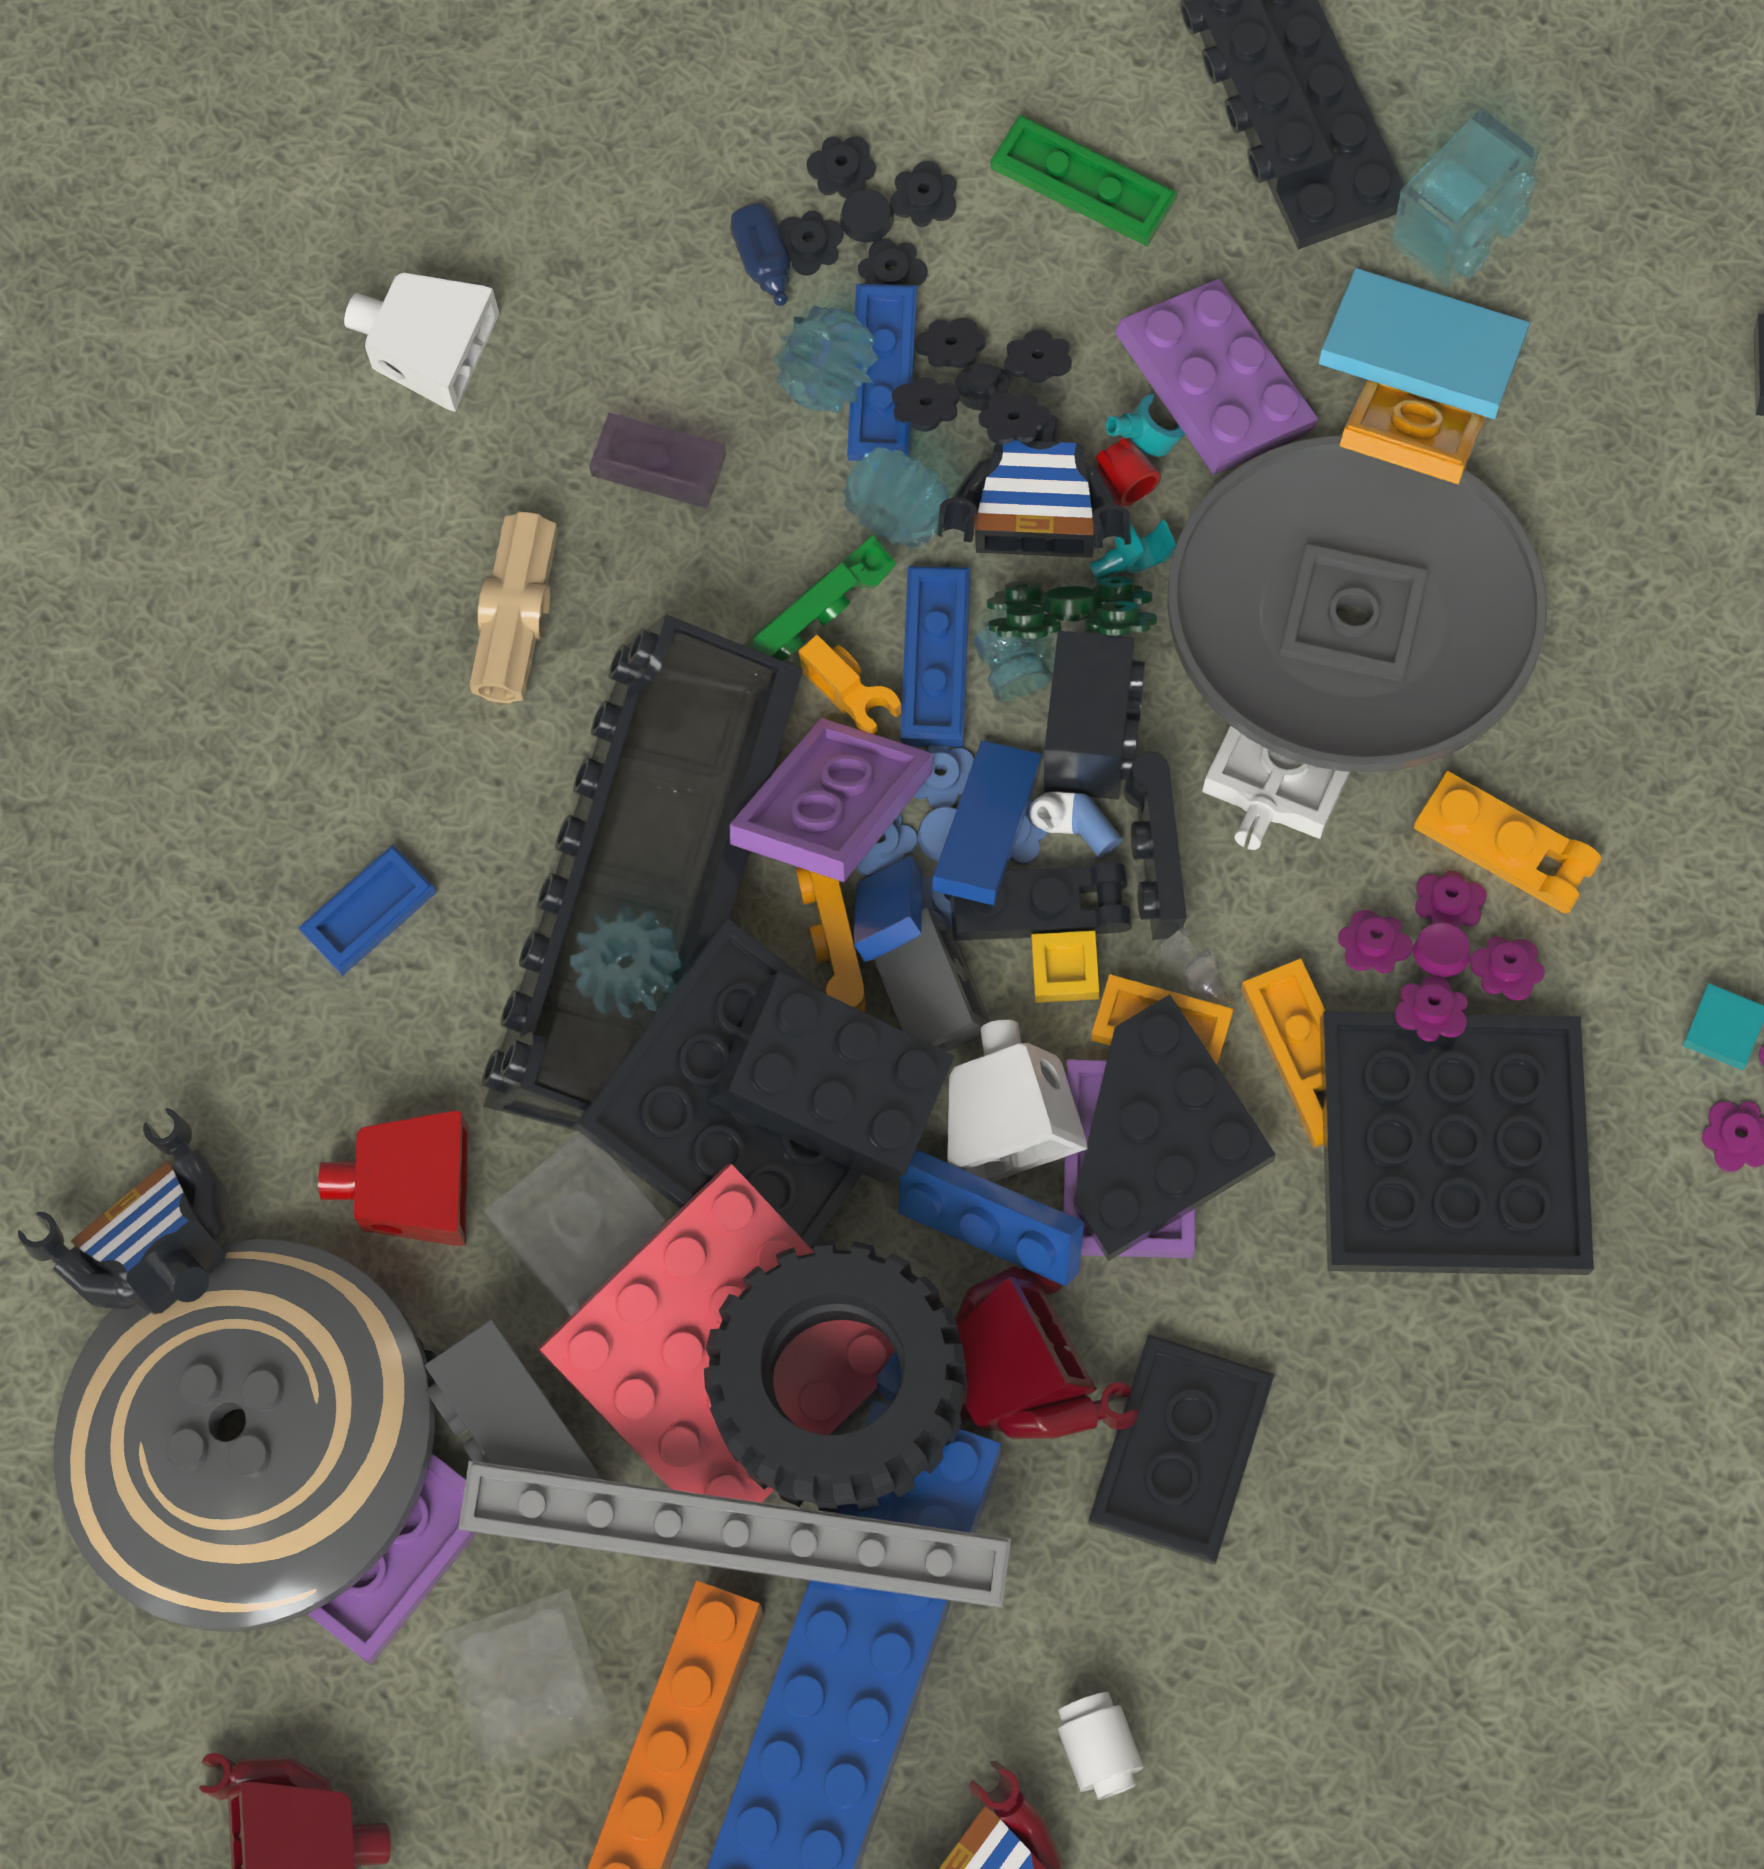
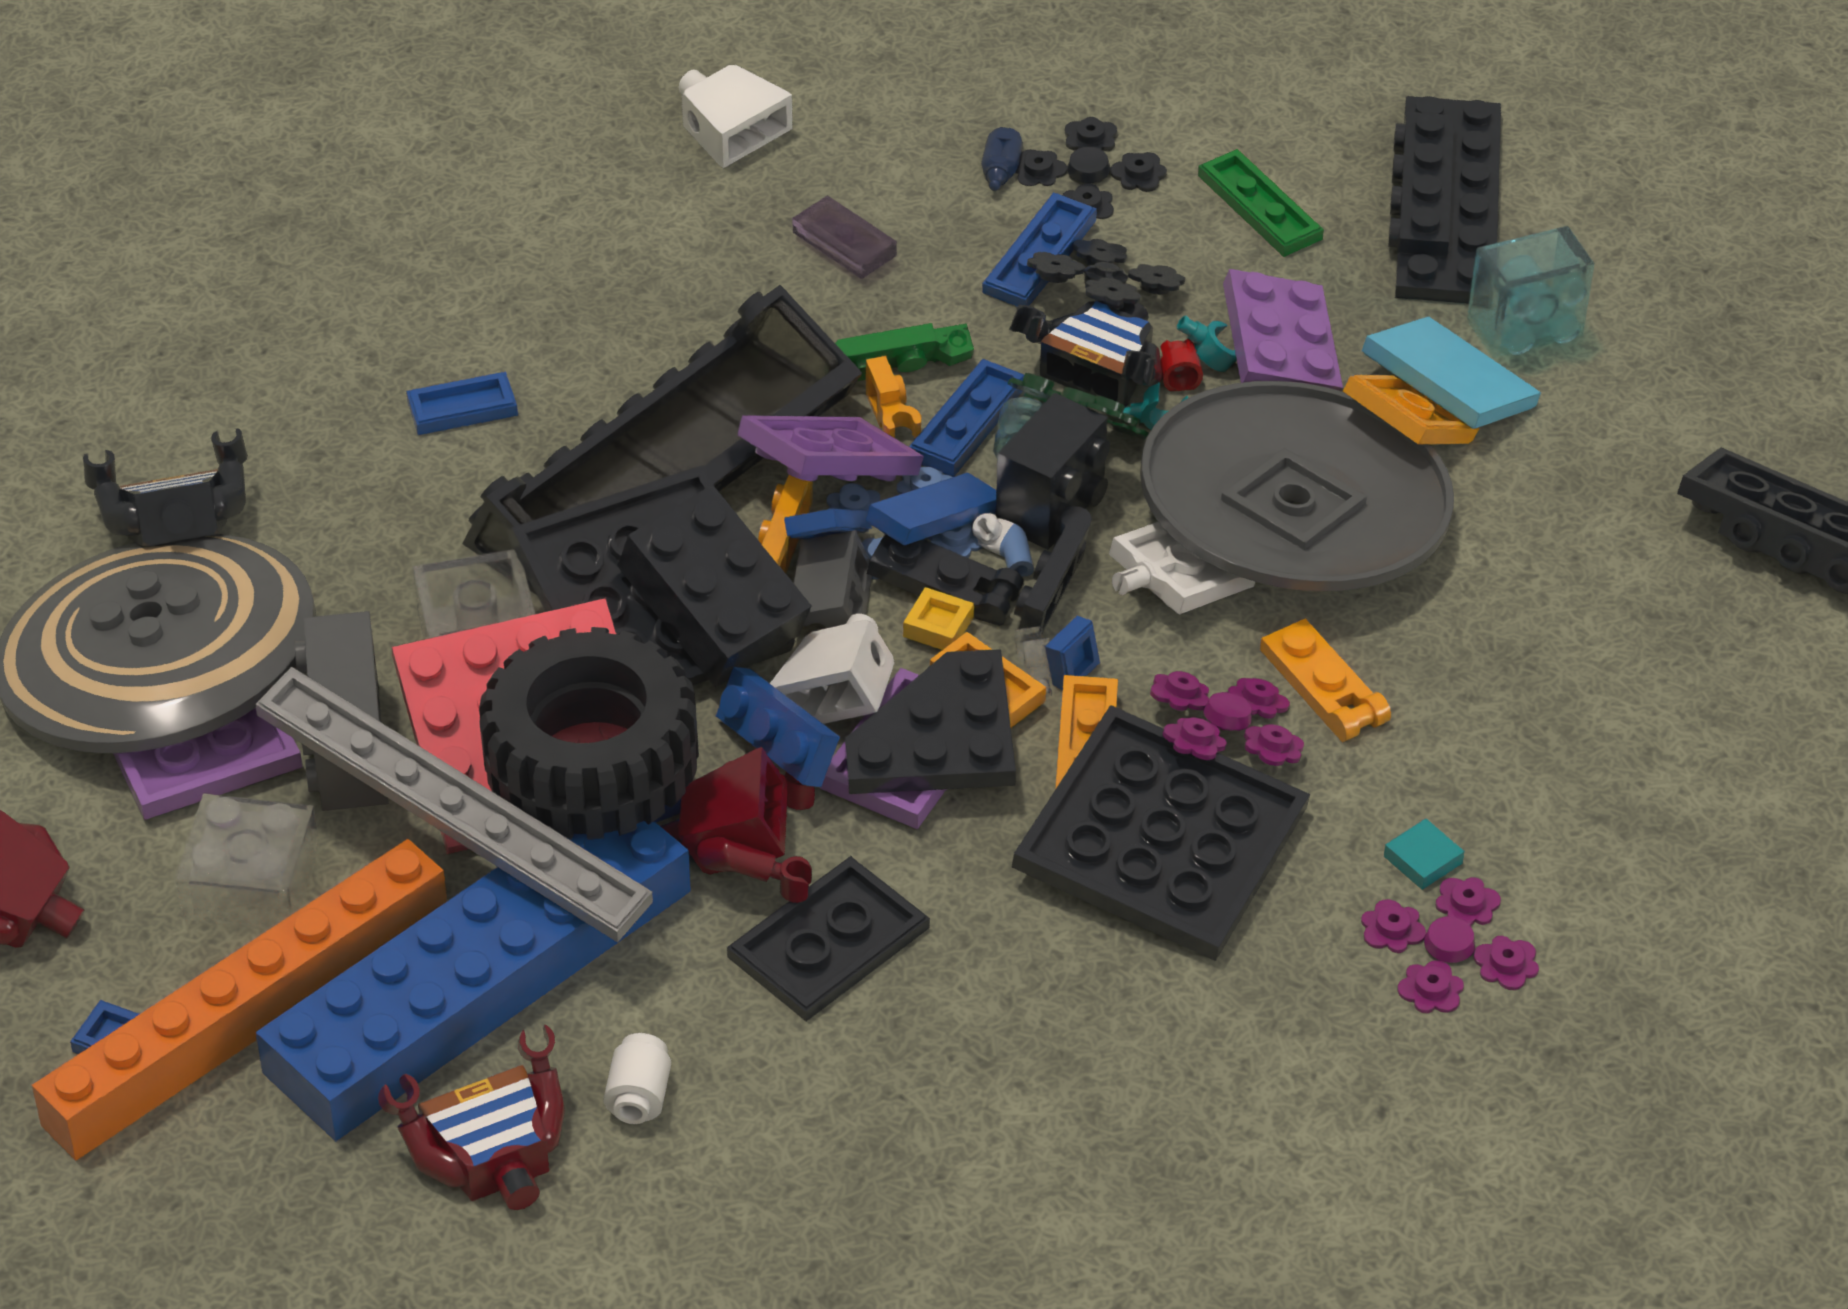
camera: 20 degrees right, 25 degrees down
(406, 1178) = (376, 549): red torso -> none
(513, 607) = (684, 276): tan piece -> none
(605, 978) = (613, 469): clear light blue gear -> none
(825, 359) = (1000, 218): clear light blue gear -> none
(895, 497) = (990, 305): clear light blue gear -> none
(1235, 946) = (1072, 651): none -> blue tile

